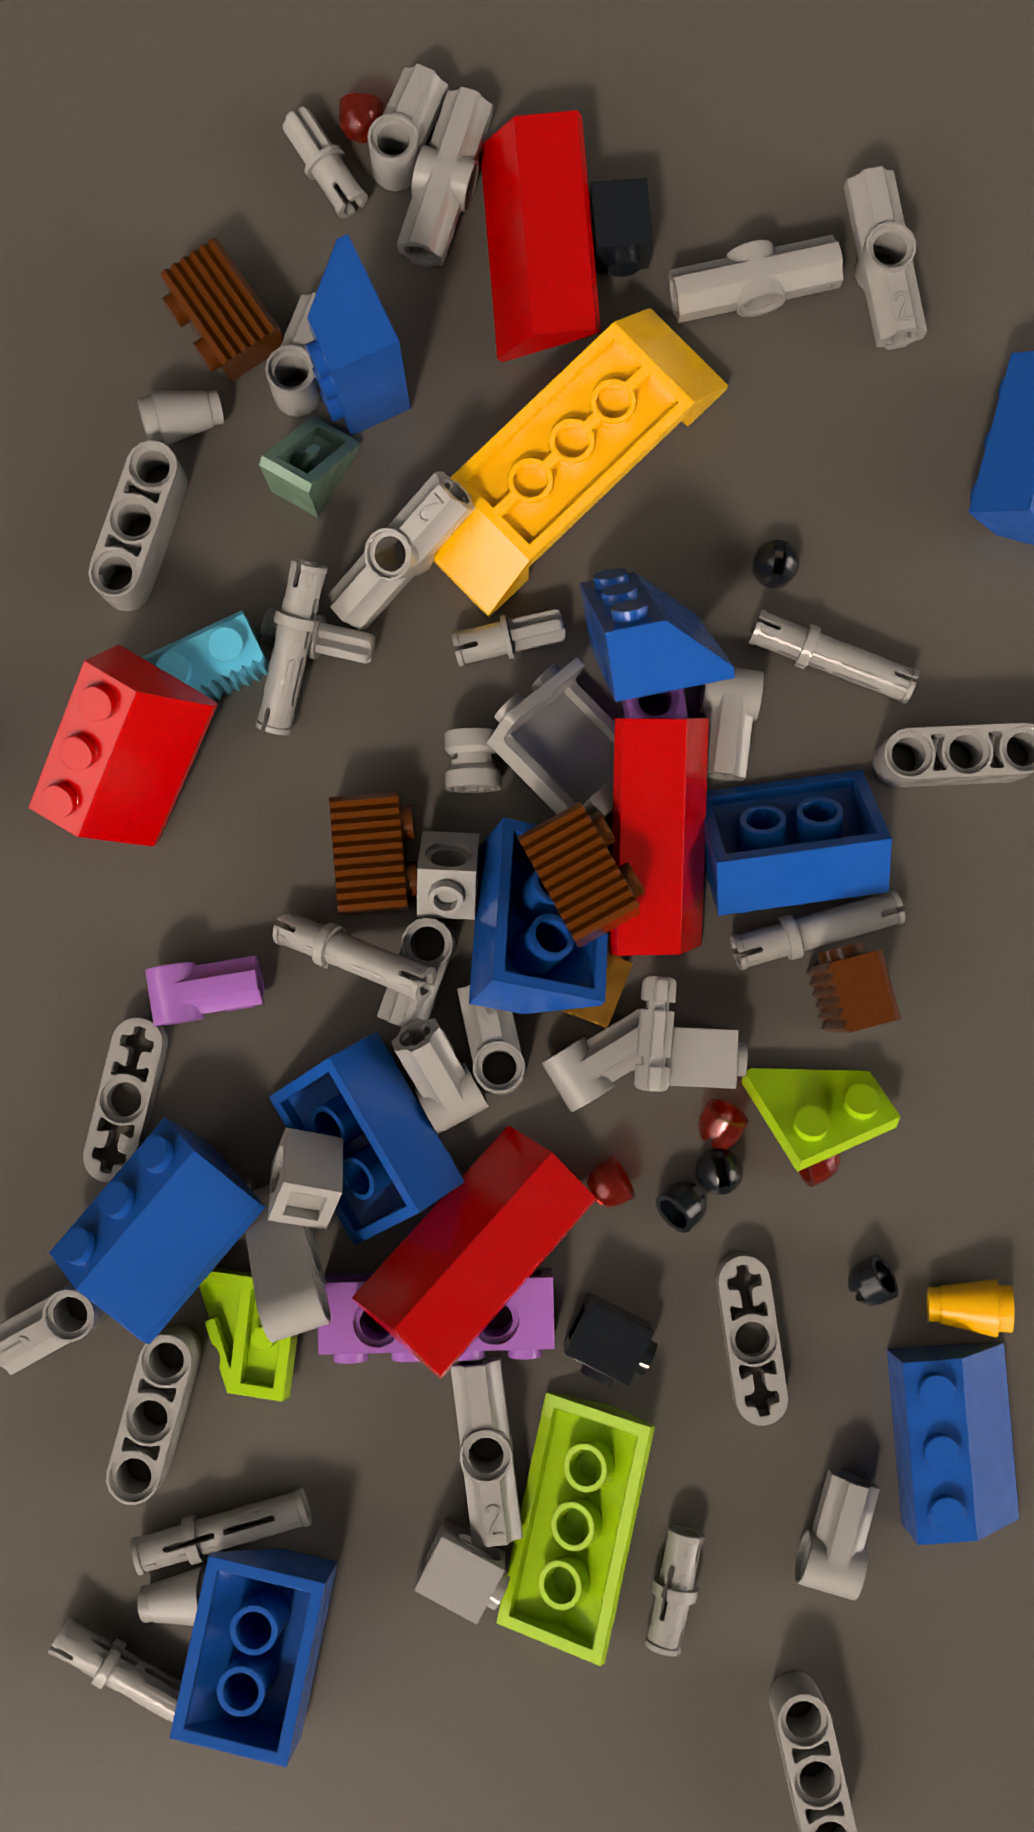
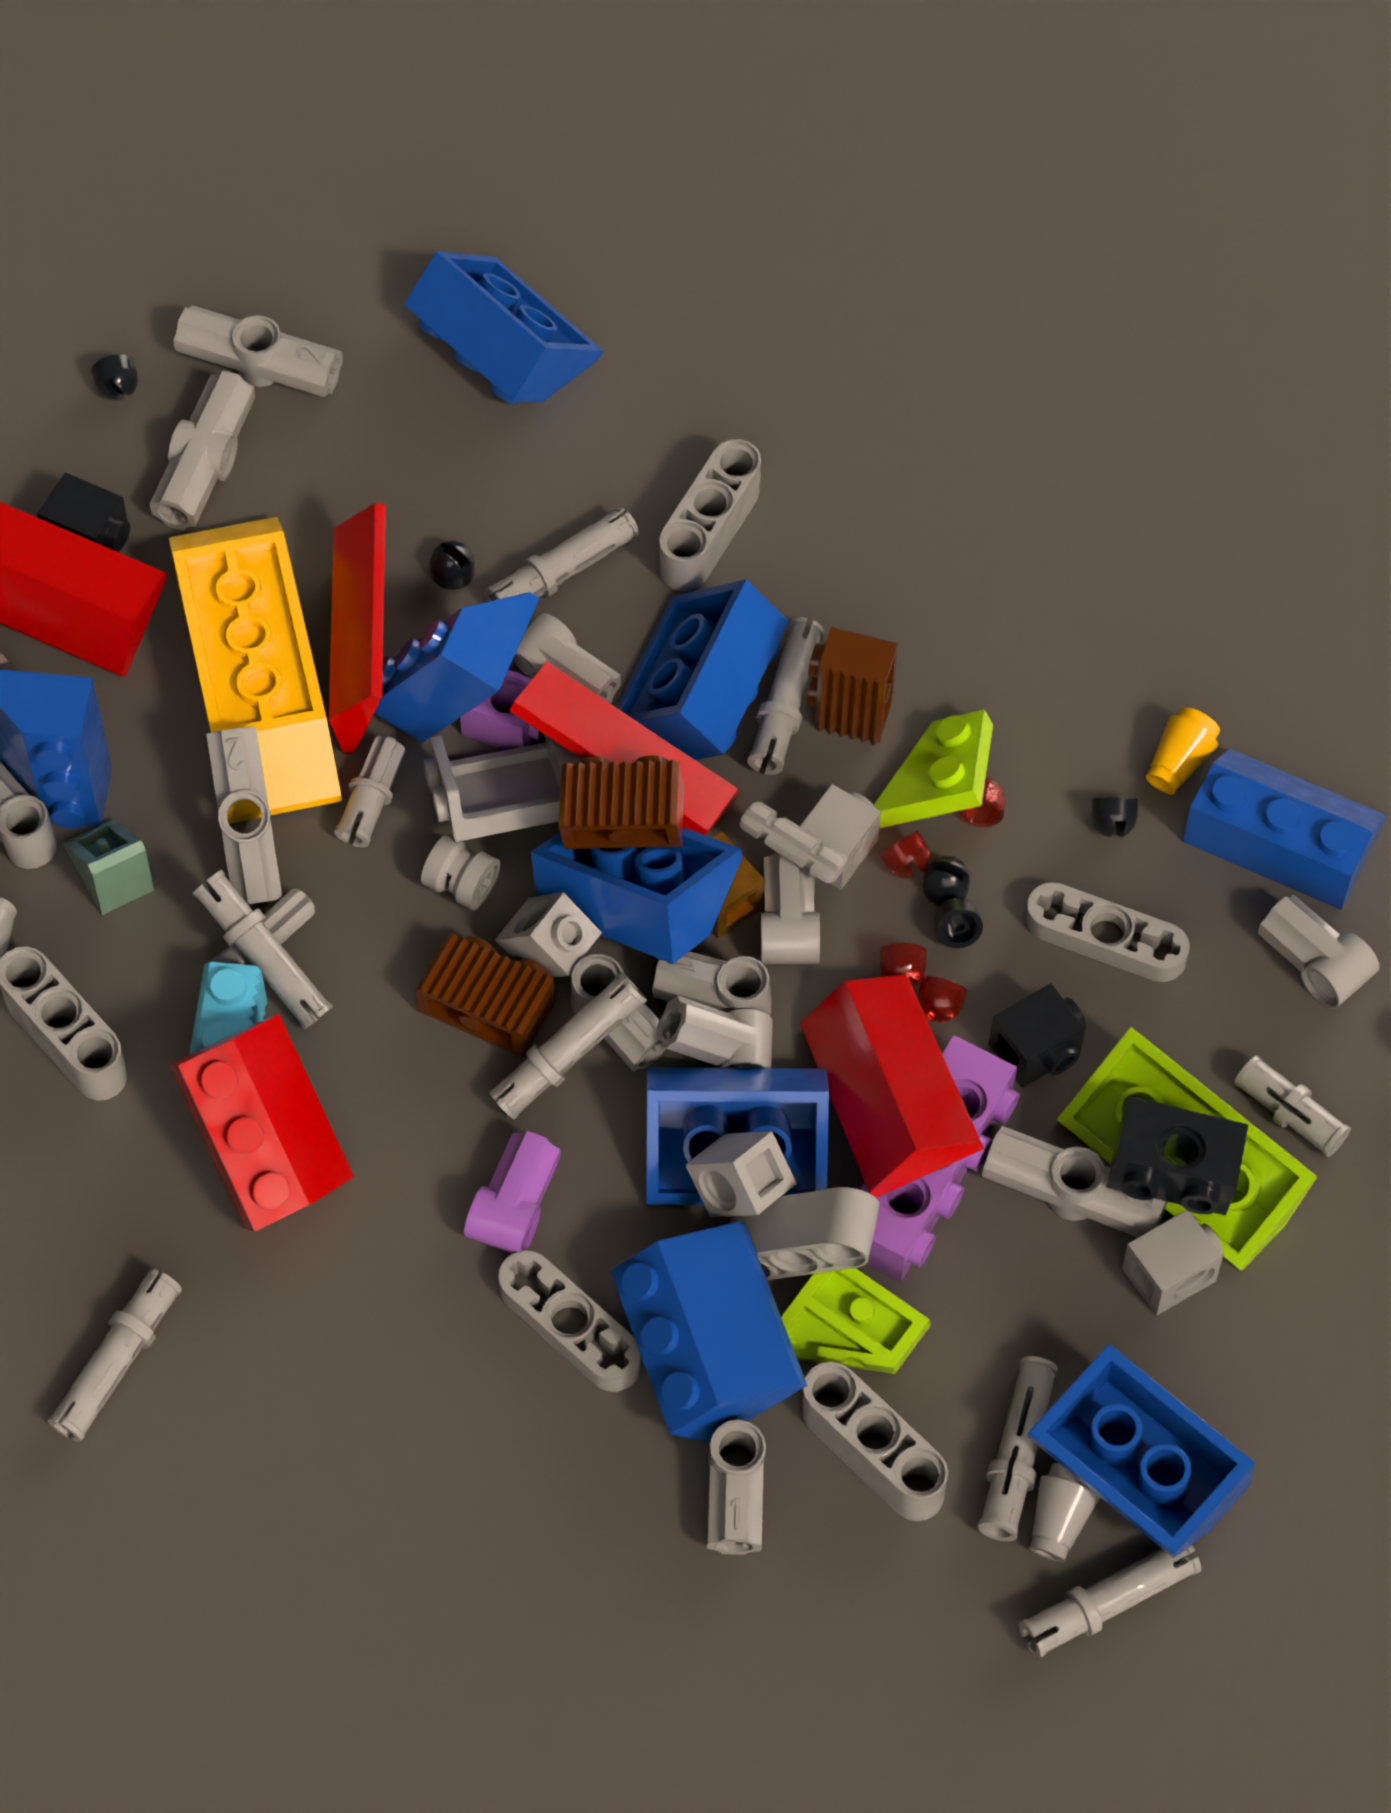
camera: 60 degrees left, 25 degrees down
(543, 1583) = (1204, 1142): none -> black brick
(598, 1233) = (941, 998): none -> clear red hinge
(645, 521) = (357, 624): none -> red slope
(784, 156) = (115, 376): none -> black hinge

